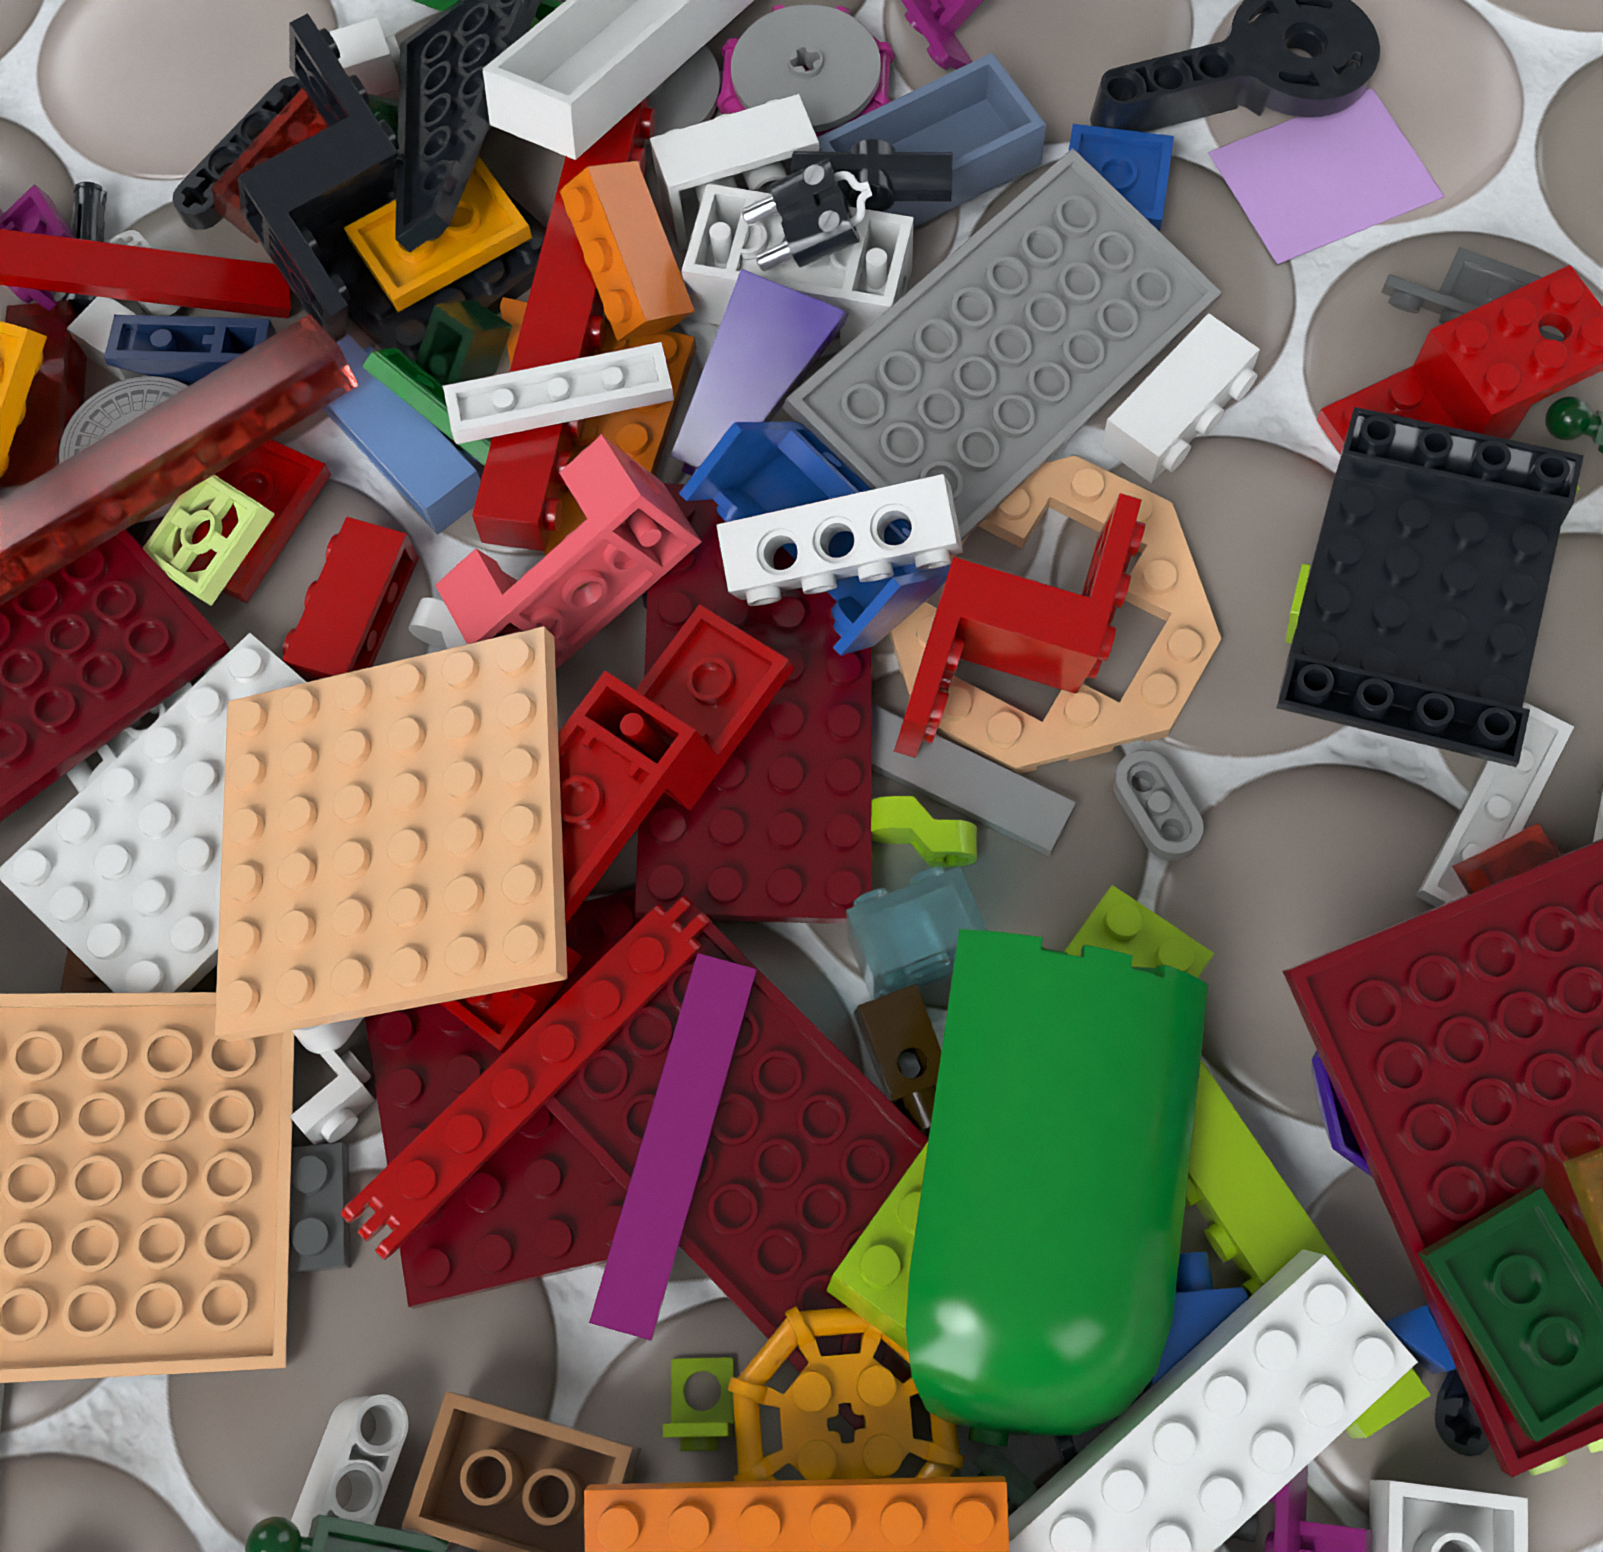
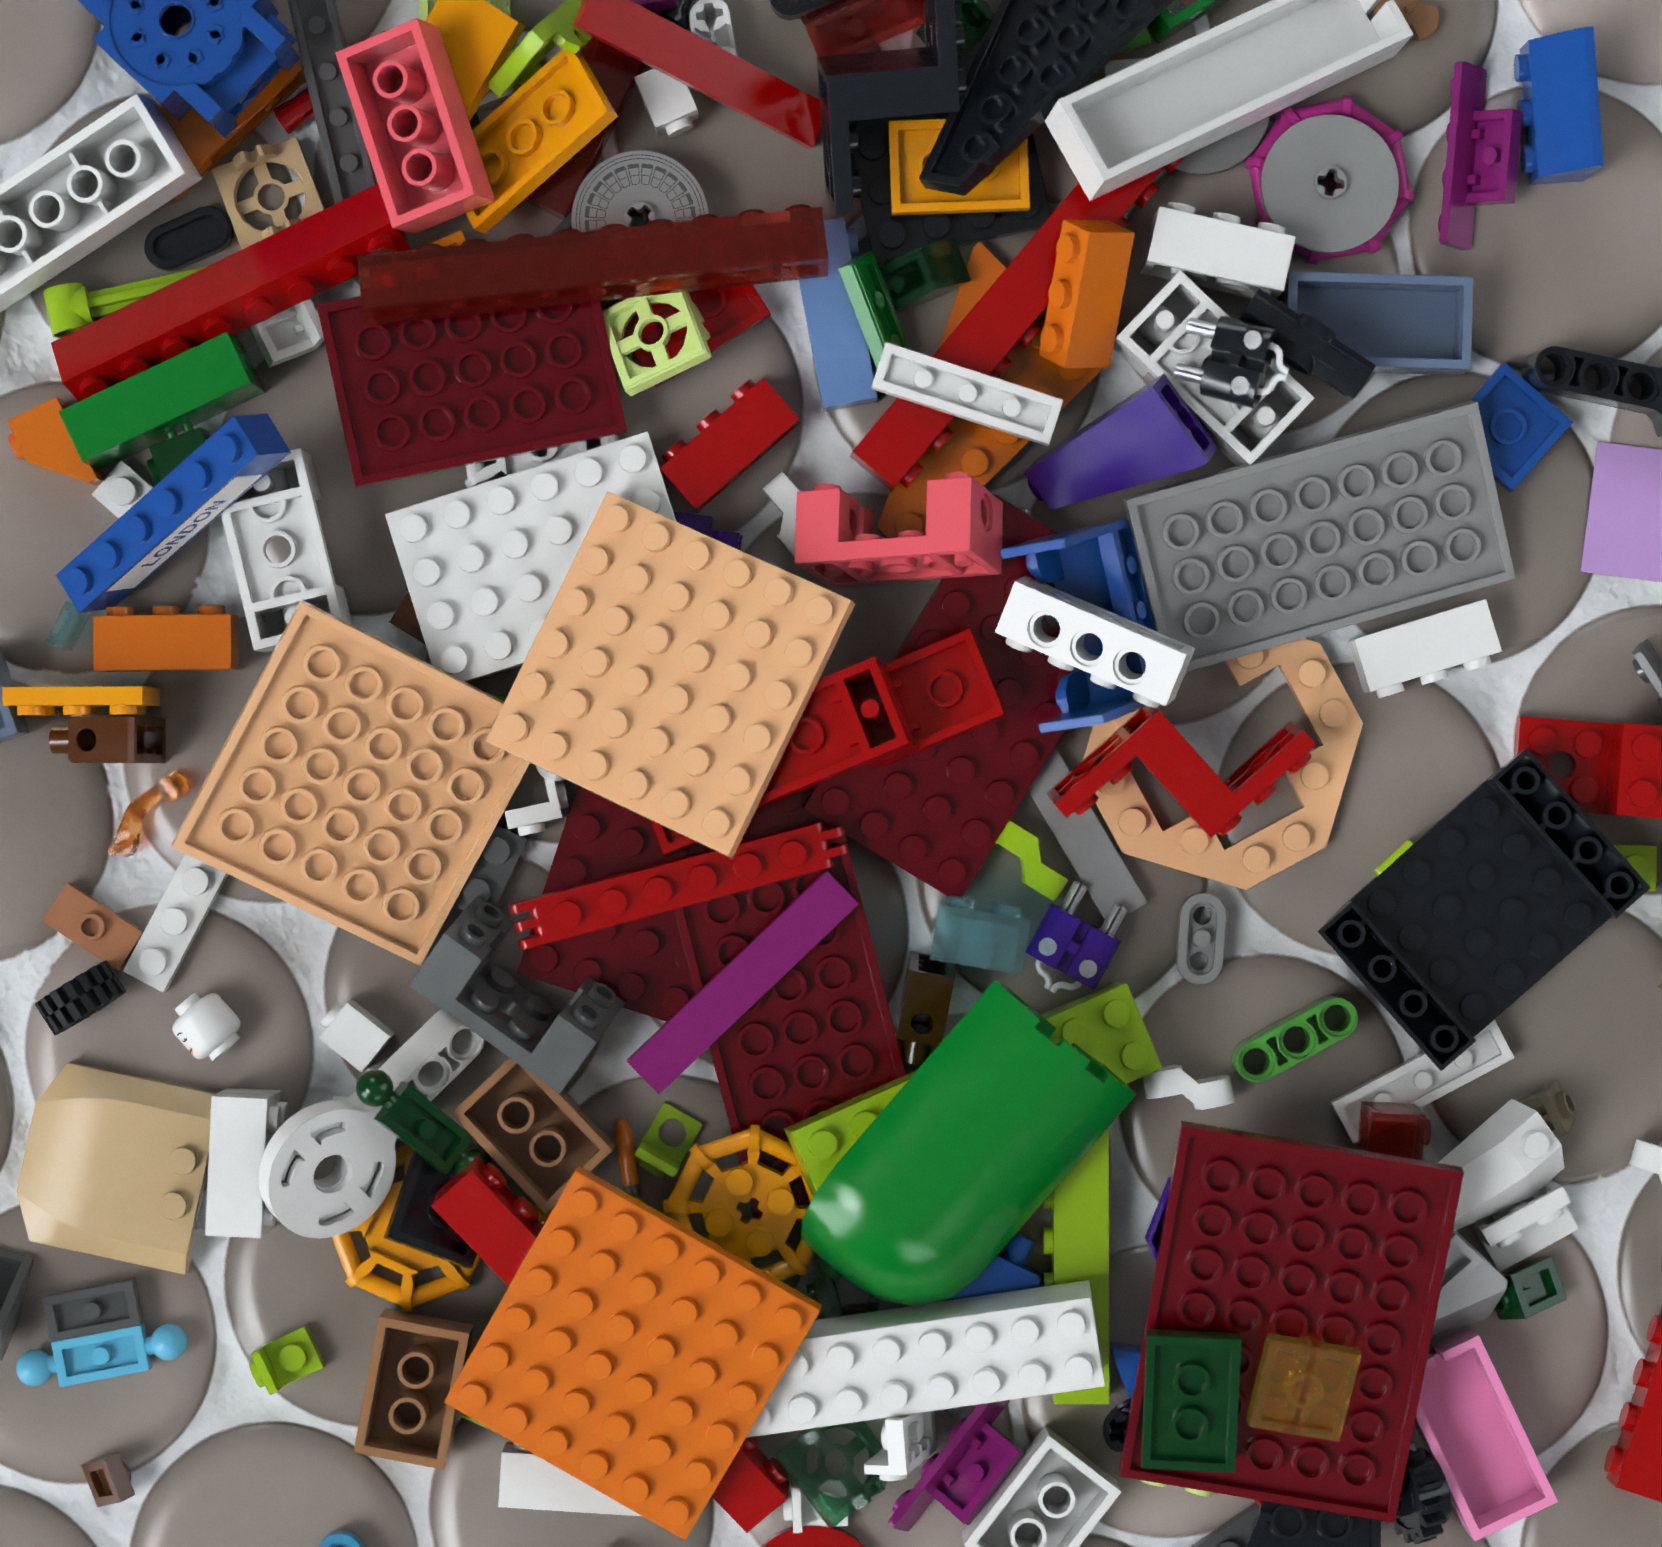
camera: 20 degrees right, 20 degrees up
(181, 345) = (721, 160): dark blue slope -> none
(236, 1498) = (355, 1034): none -> white brick
(329, 1344) = (503, 1010): none -> dark grey plate
(658, 1449) = (627, 1159): none -> orange piece
(1028, 891) = (1074, 944): none -> dark purple piece
(1255, 968) = (1203, 1093): none -> white piece
(1348, 828) = (1316, 1038): none -> bright green beam

